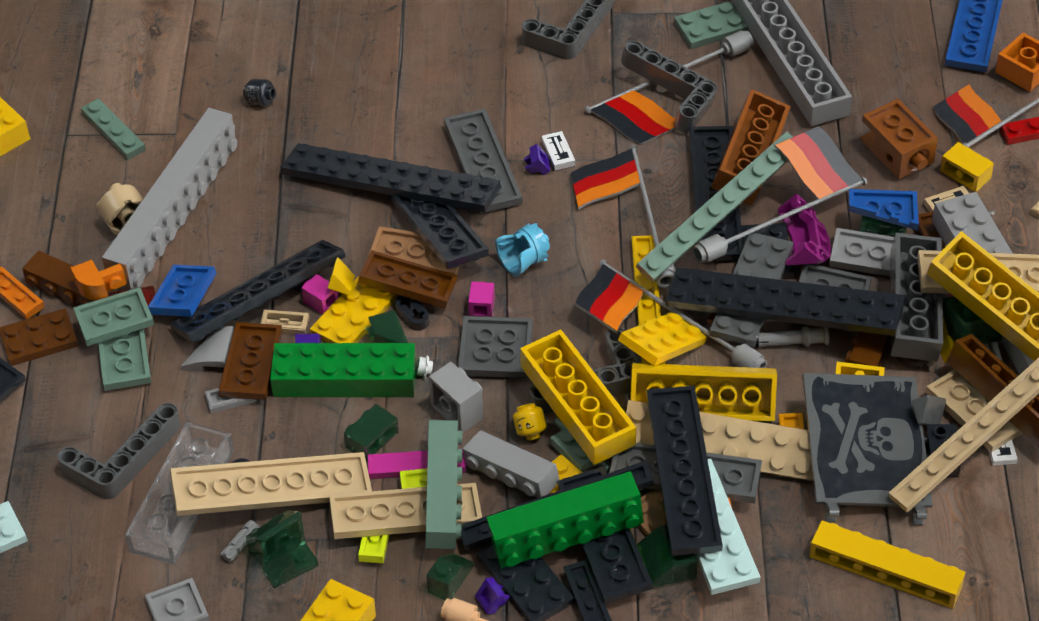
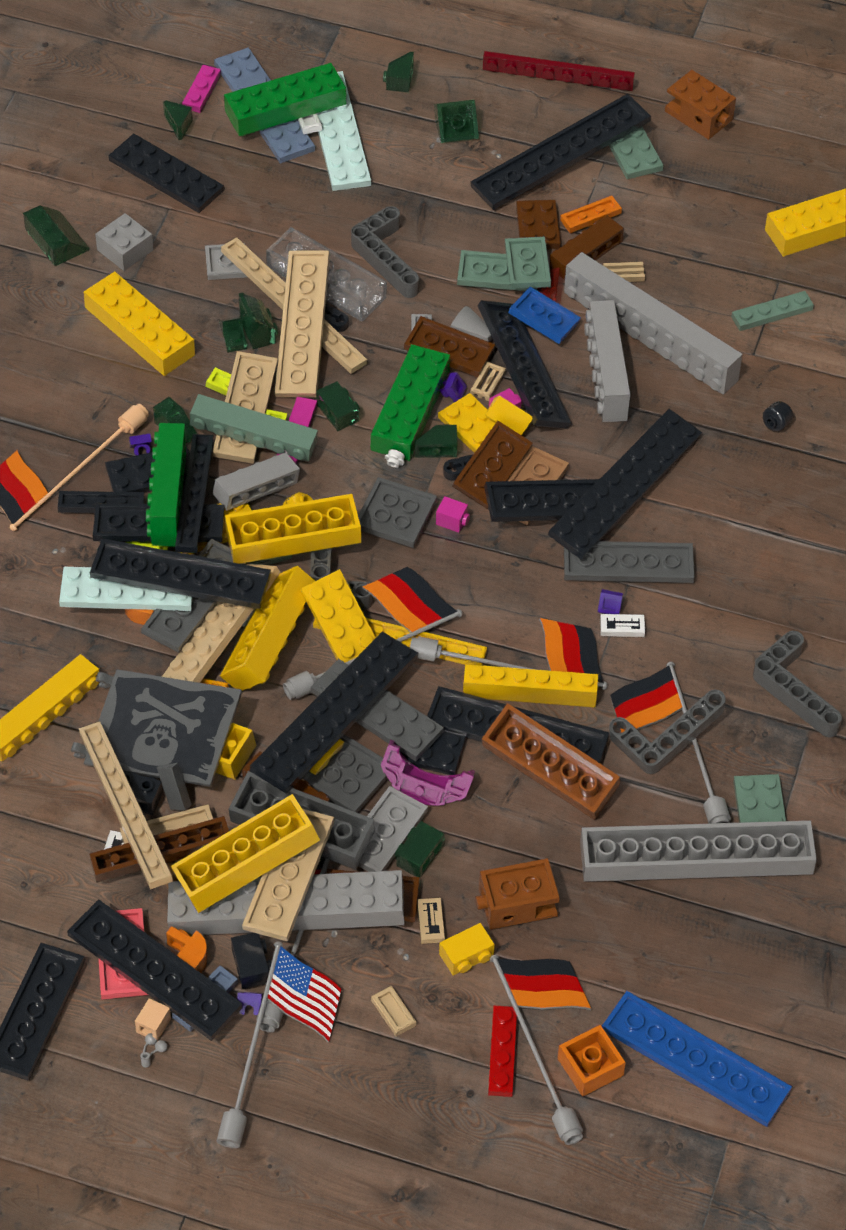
camera: 105 degrees right, 5 degrees up
(88, 238) = (628, 270): none -> tan tile
(95, 284) = (564, 248): orange brick -> none
(118, 205) = (655, 284): tan brick -> none
(220, 529) = (274, 287): none -> tan plate
(235, 220) = (607, 361): none -> light grey brick
(238, 542) = (274, 310): light grey axle -> none
(456, 396) = (341, 461): light grey brick -> none
(522, 249) = (494, 558): medium azure hat -> none
(662, 182) = (531, 685): none -> yellow brick
(713, 212) = (468, 697): sand green plate -> none
(819, 169) = (490, 789): flag -> none
(886, 205) = (425, 841): blue wing -> none

